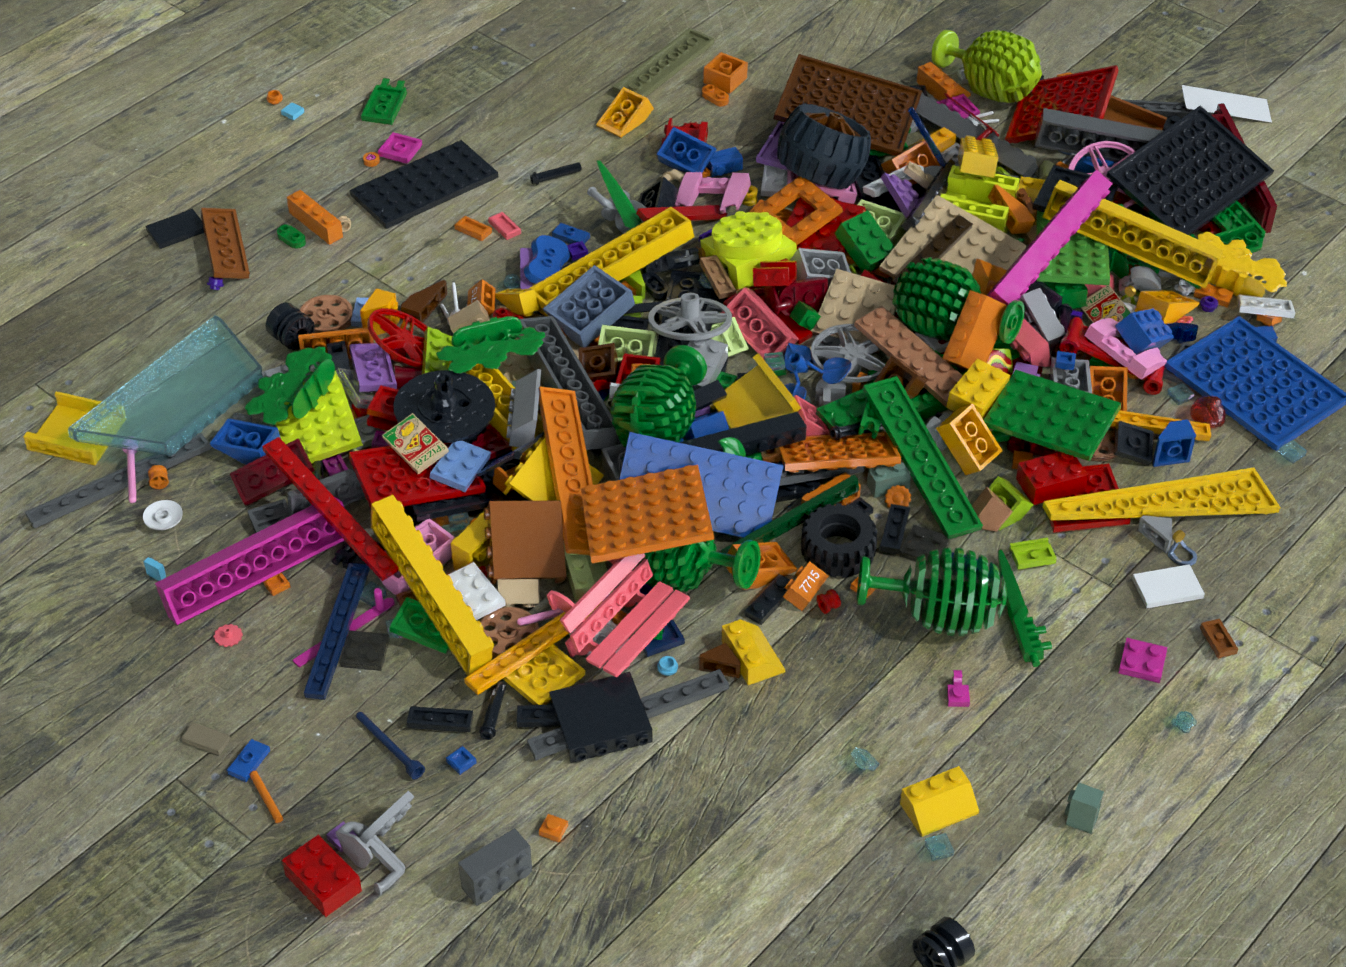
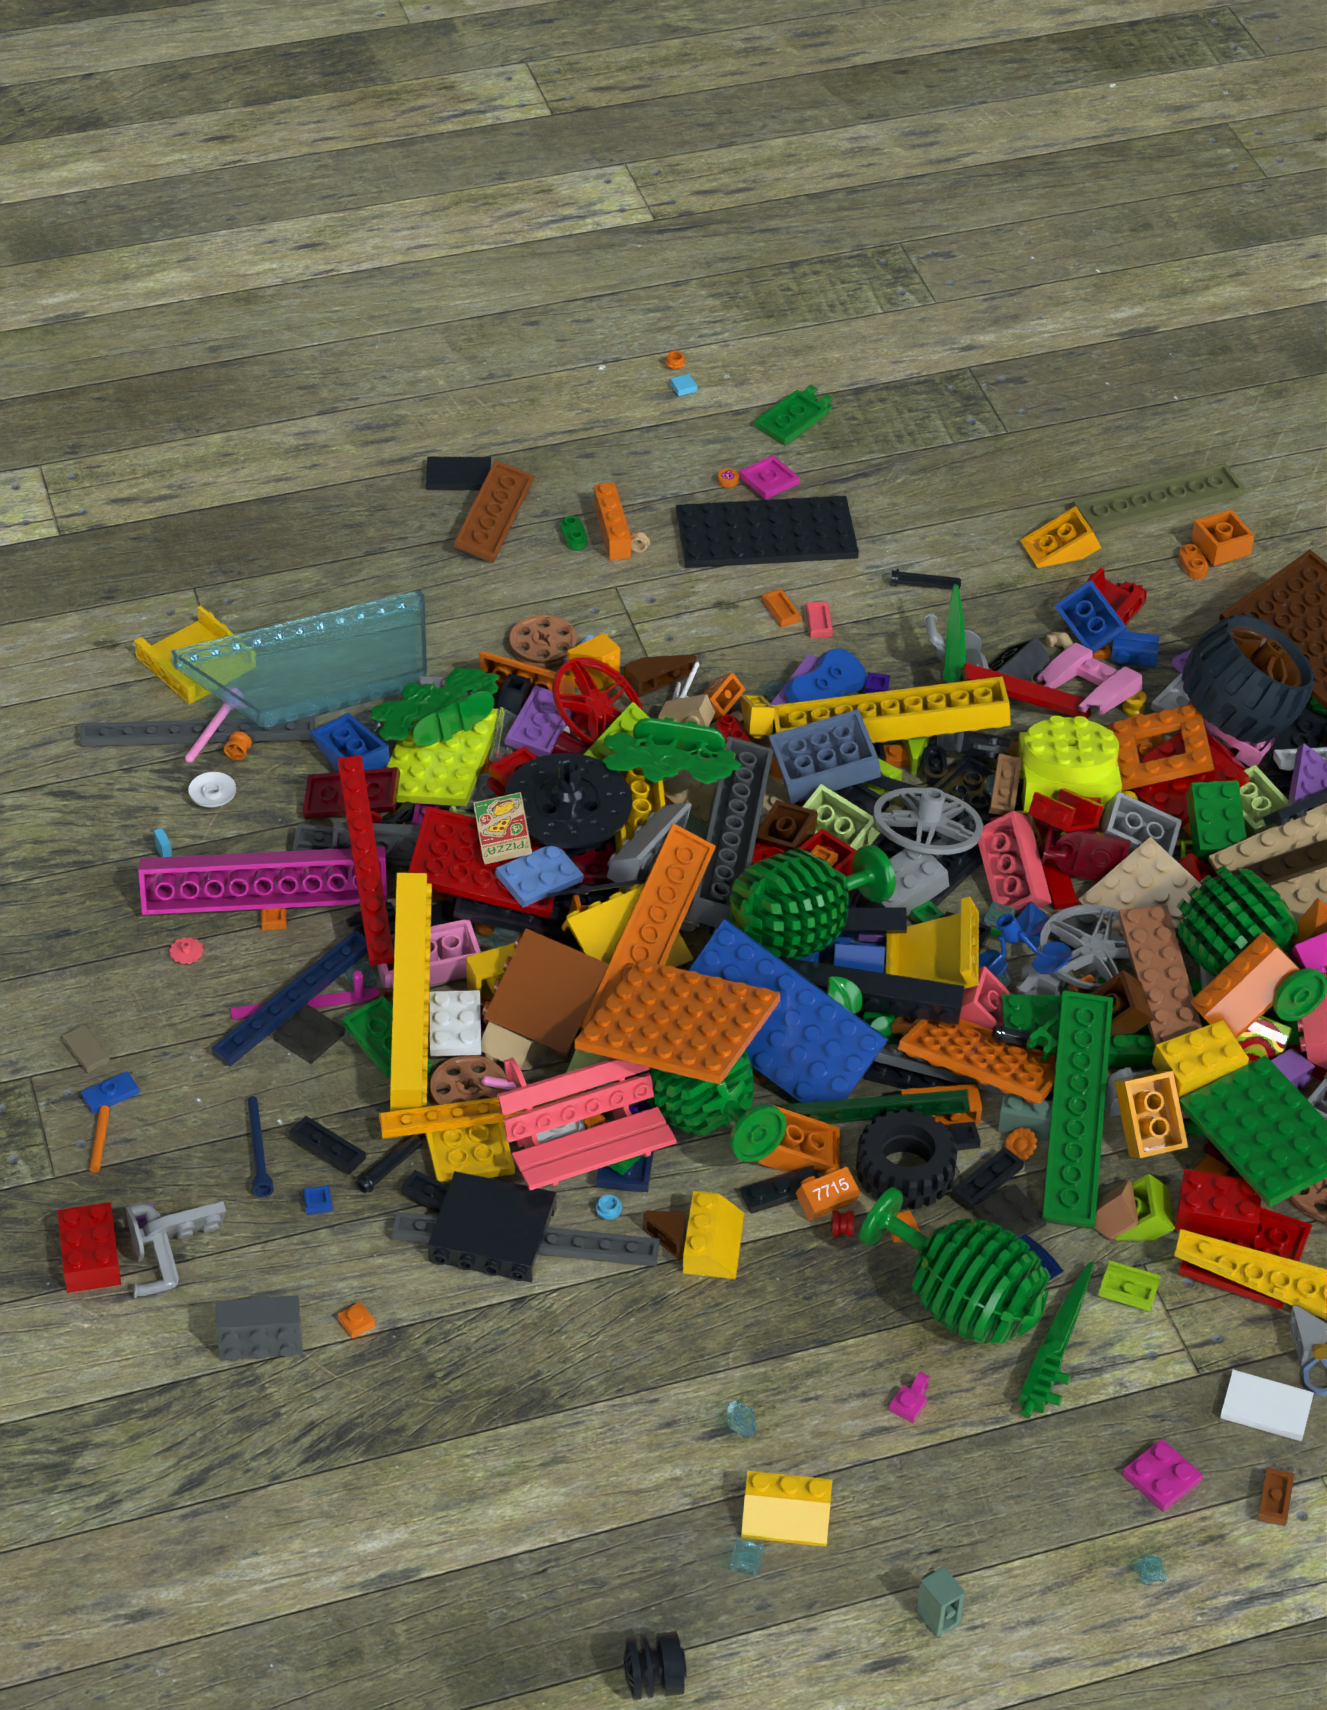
camera: 30 degrees right, 0 degrees up
(215, 283) = (452, 553): dark purple plate -> none
(288, 322) = (488, 631): black wheel -> none
(570, 234) = (886, 662): blue plate -> none
(732, 337) = (964, 867): yellowish green slope -> none
(805, 315) = (1080, 878): green brick -> none

